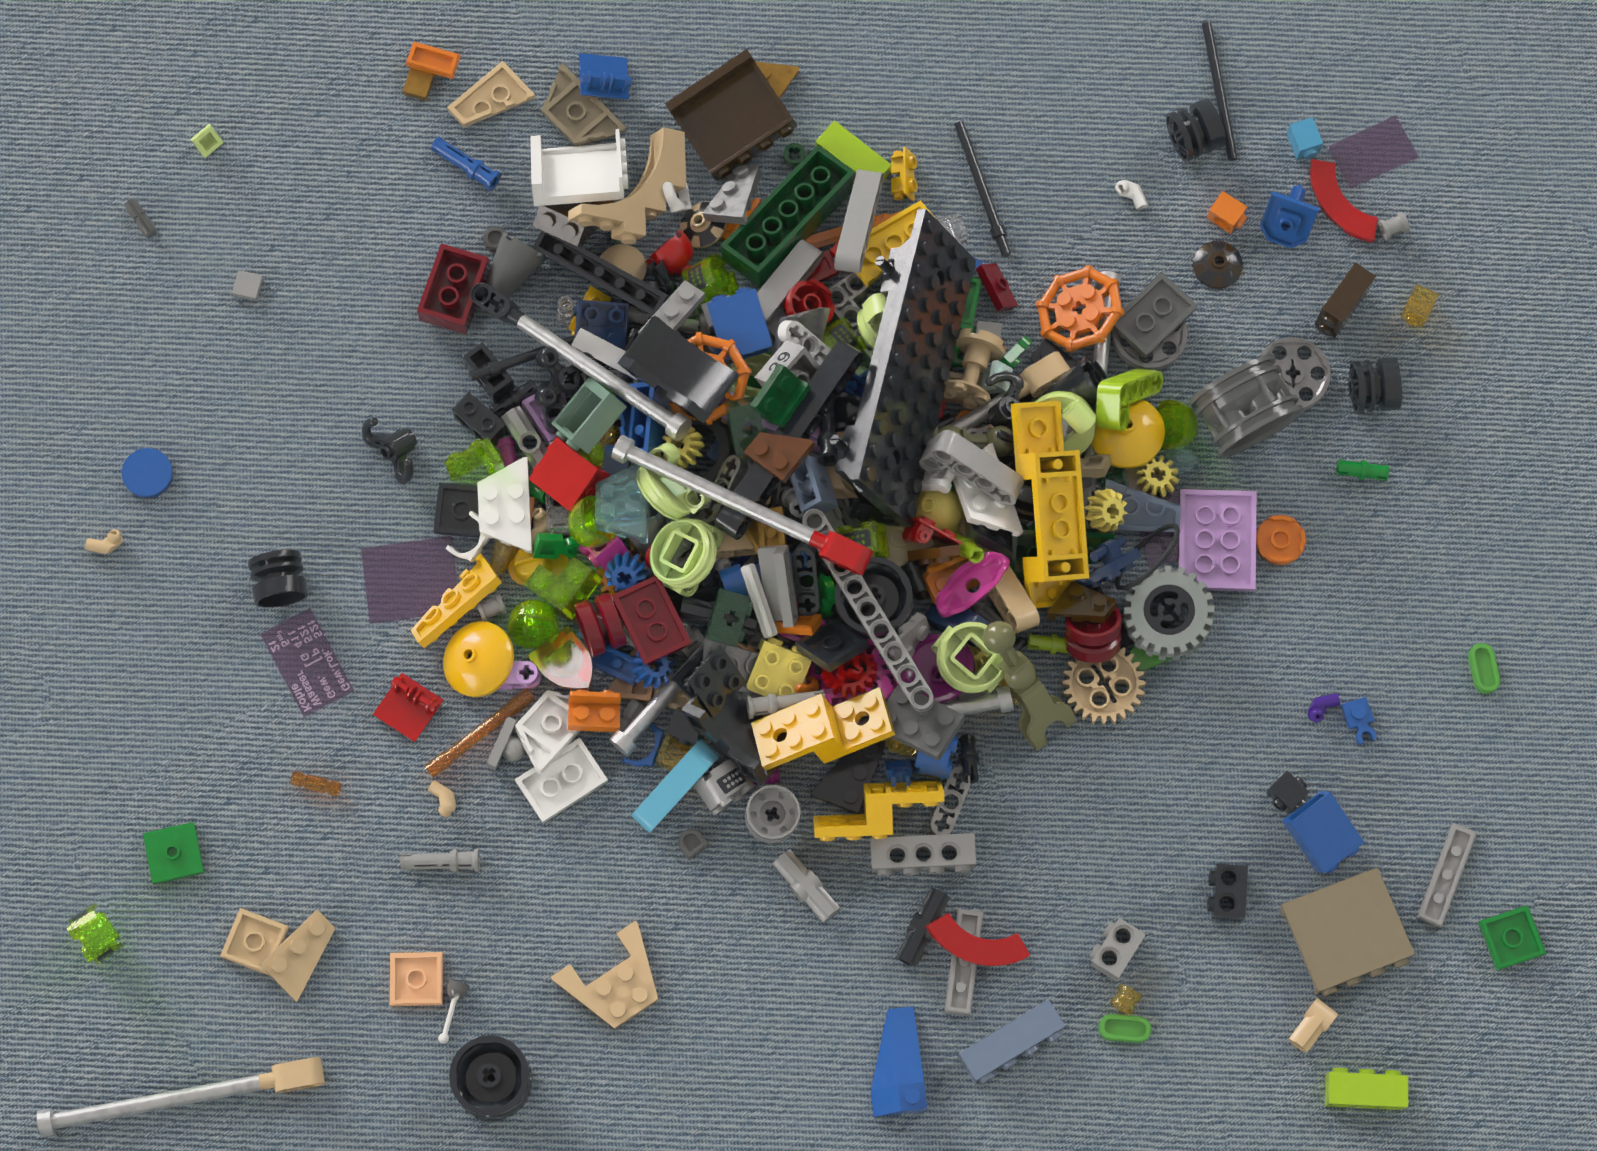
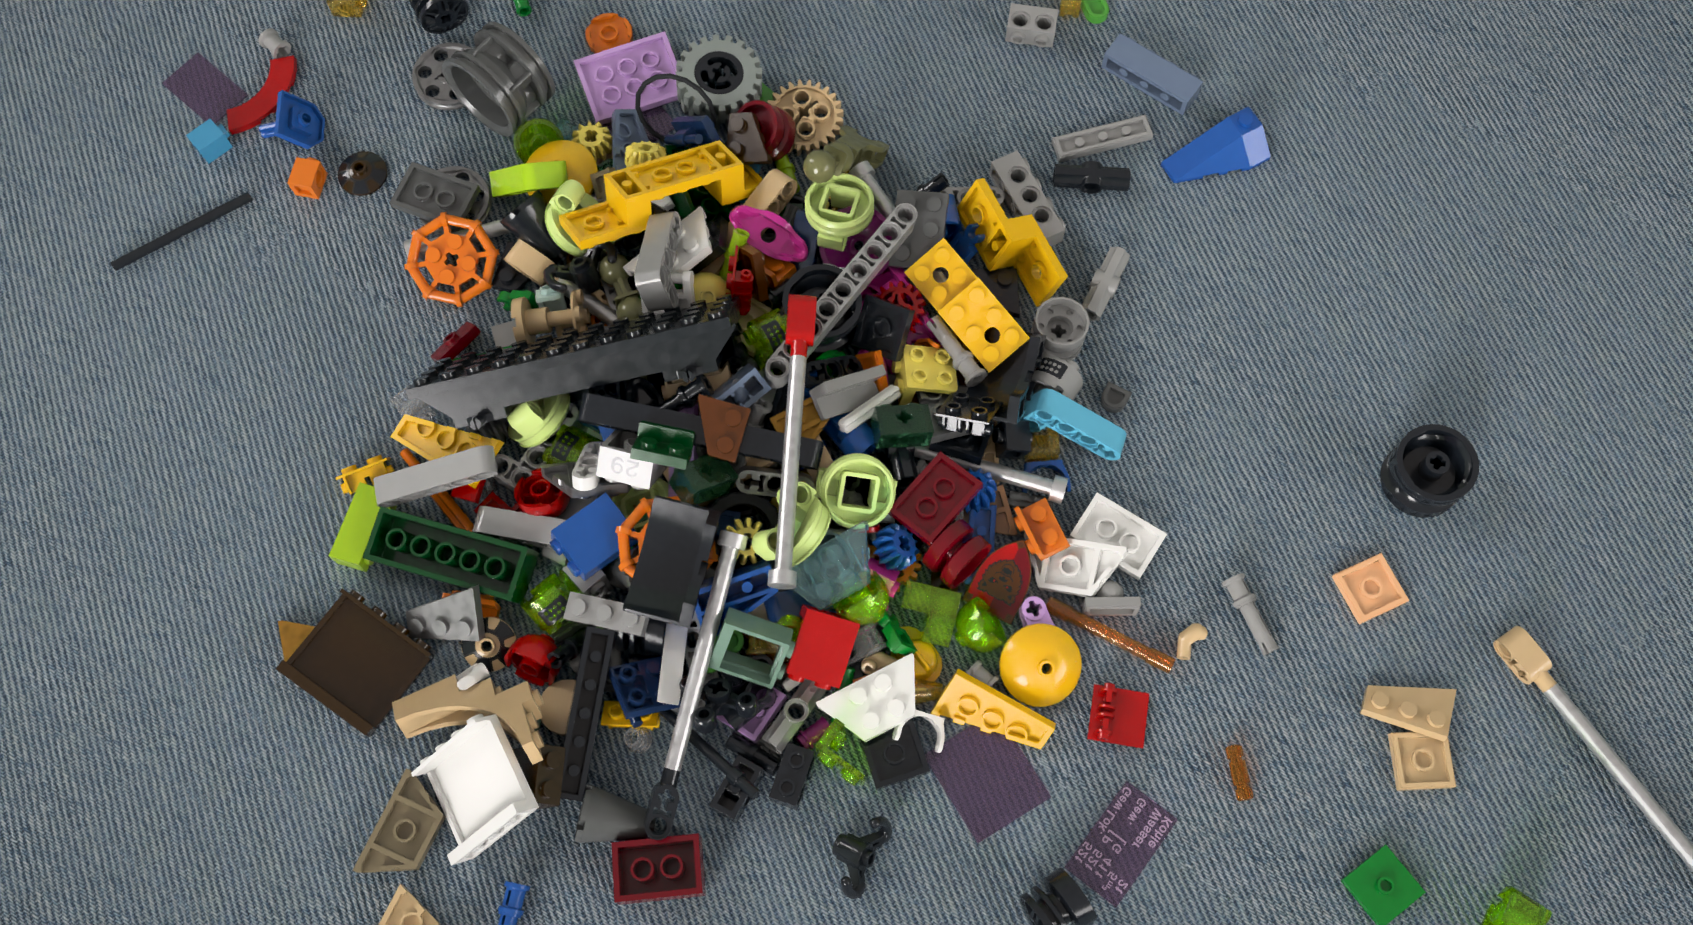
camera: 110 degrees left, 5 degrees down
(455, 991) = (1362, 545): hinge -> none
(492, 237) = (582, 855): dark grey tile -> none
(604, 76) = (353, 817): blue hinge -> none
(620, 991) = (1279, 402): tan wing -> none
(793, 147) = (378, 579): dark green bush -> none
(975, 949) = (1090, 126): red tile -> none
(998, 231) = (395, 366): black bar -> none
(1132, 191) = (313, 264): white arm -> none
(1196, 129) = (230, 225): black wheel -> none
(1344, 300) = (362, 49): dark brown brick -> none

